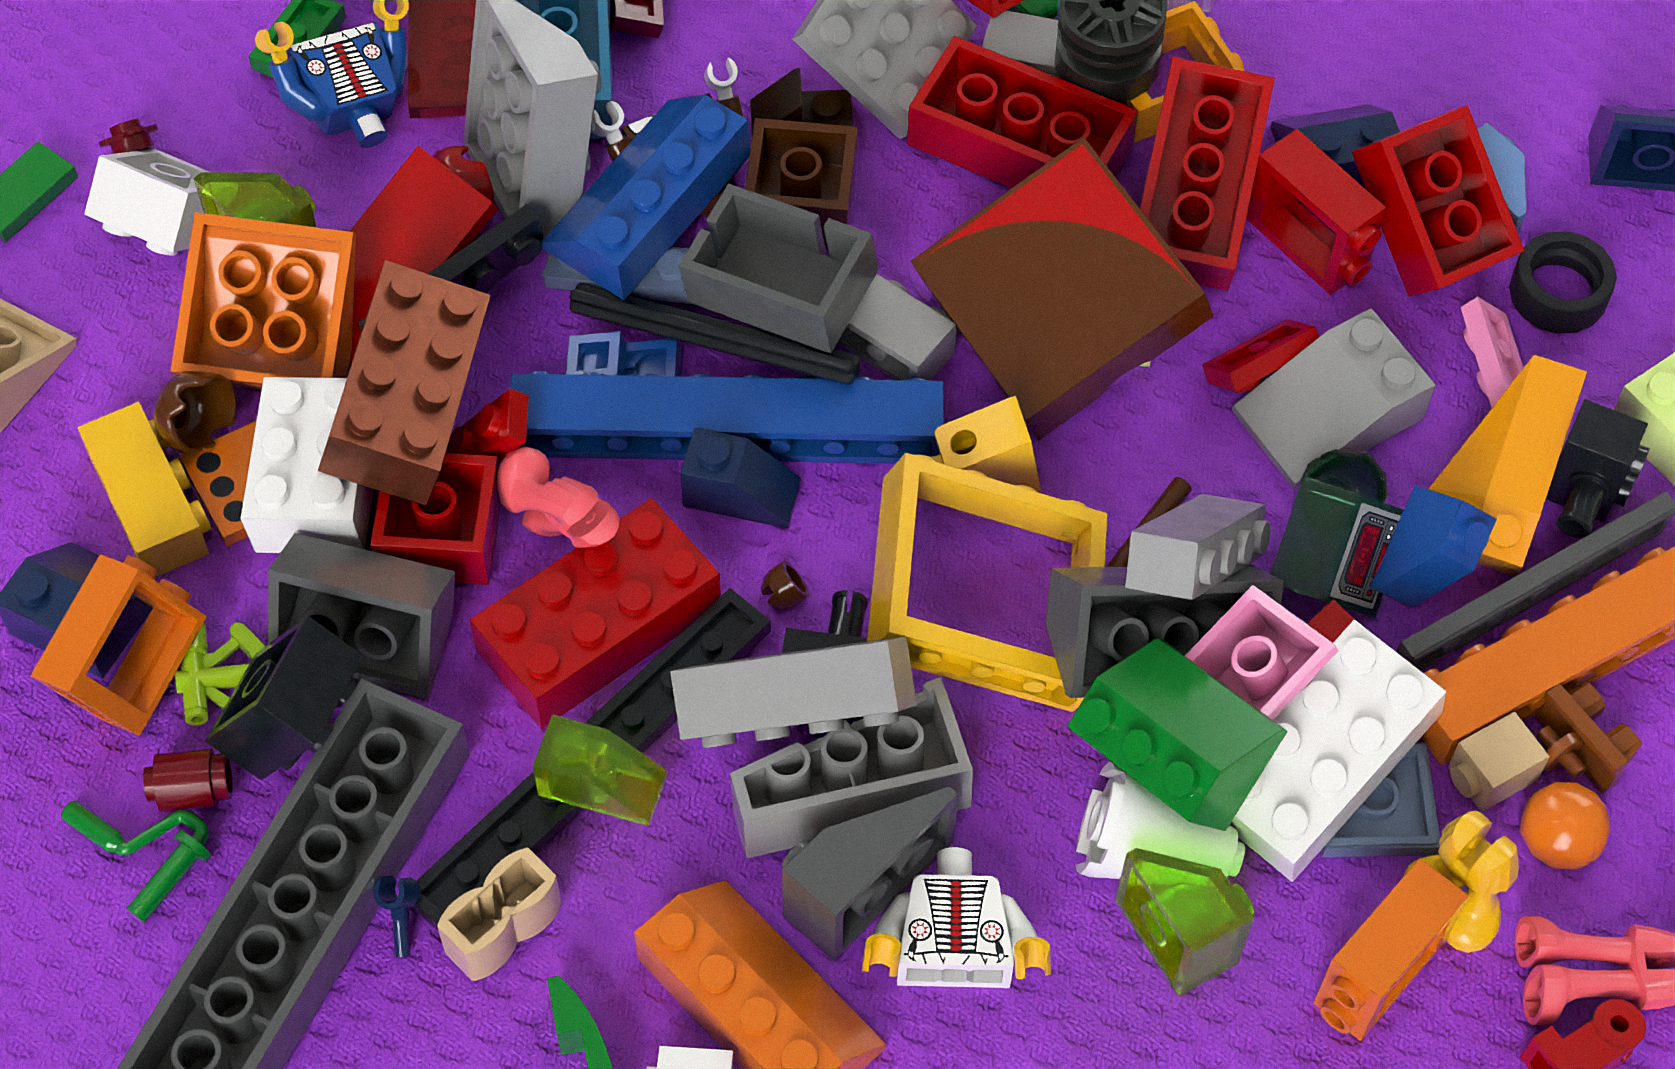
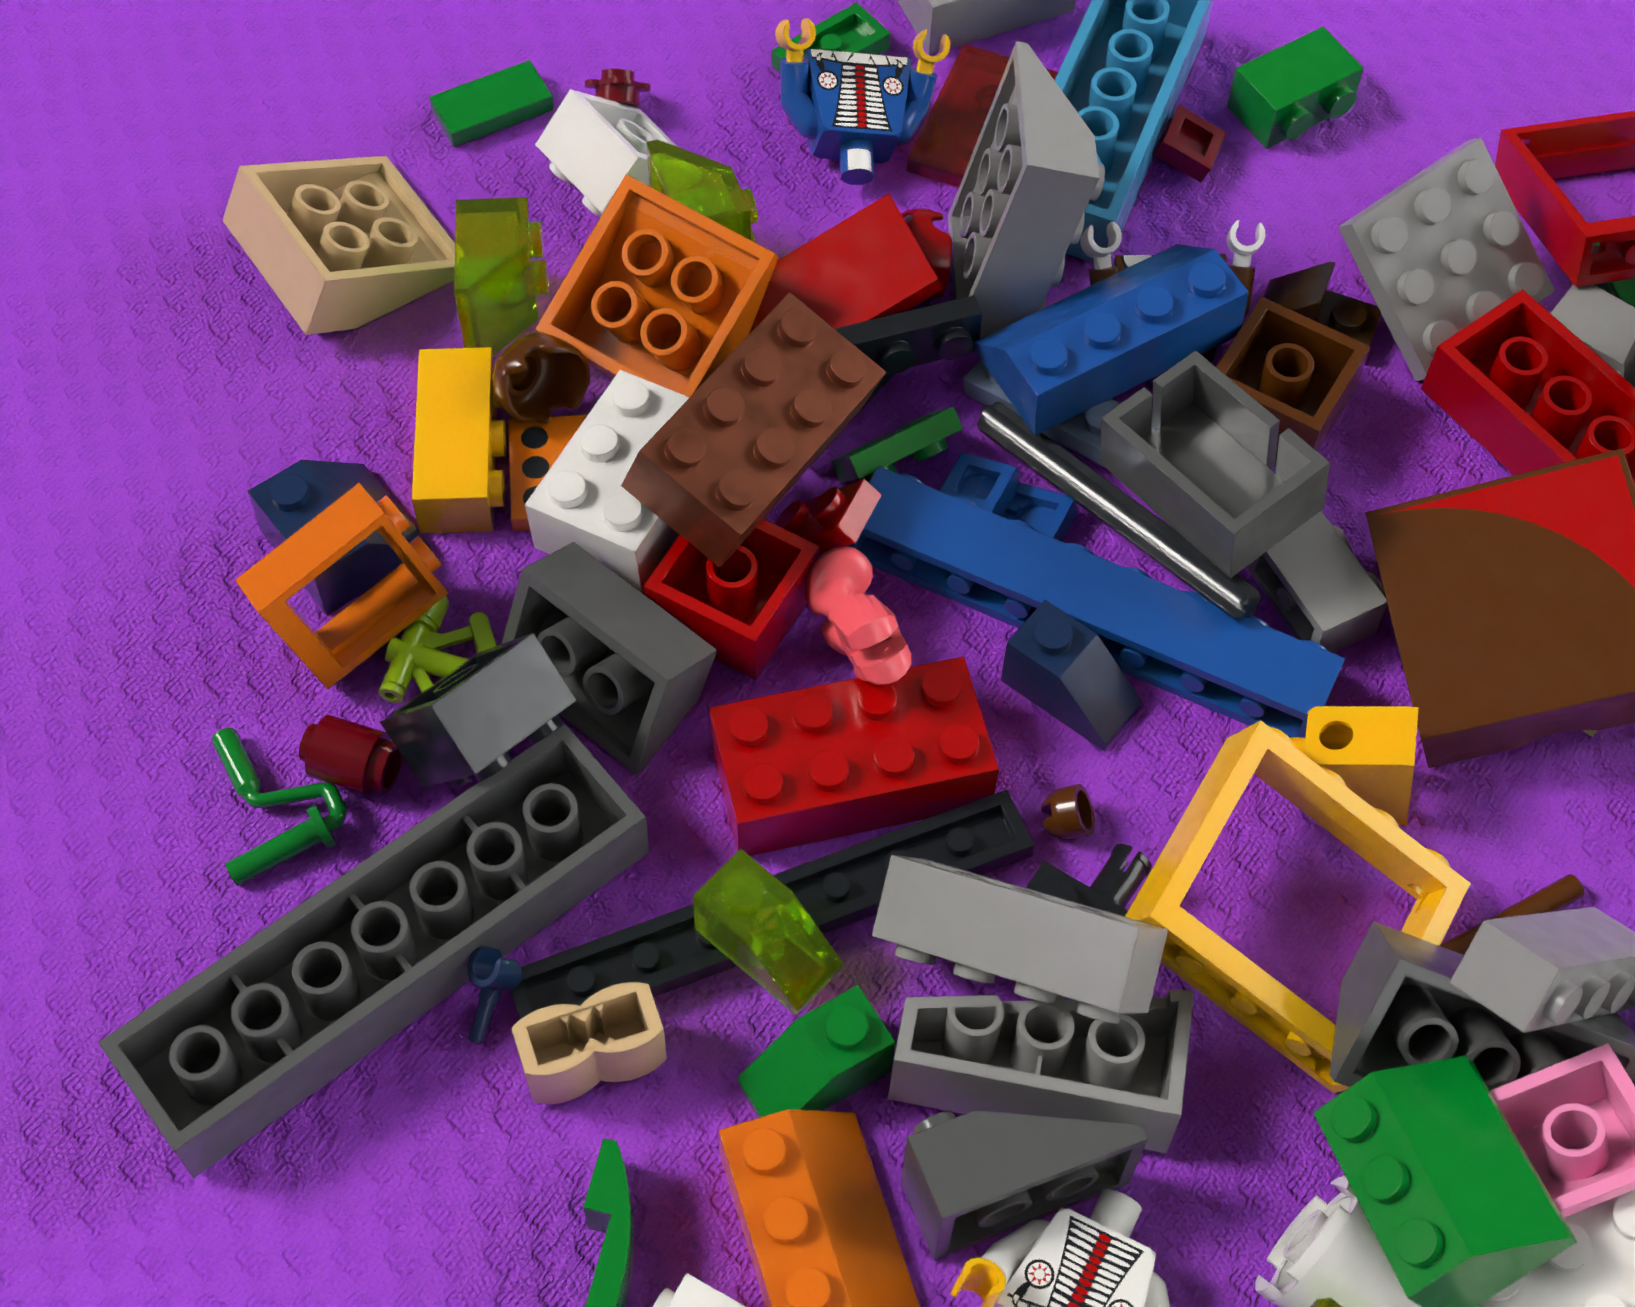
camera: 25 degrees right, 0 degrees up
(111, 333) = (497, 270): none -> clear neon green slope
(527, 339) = (920, 438): none -> green plate
(682, 848) = (821, 1058): none -> green slope

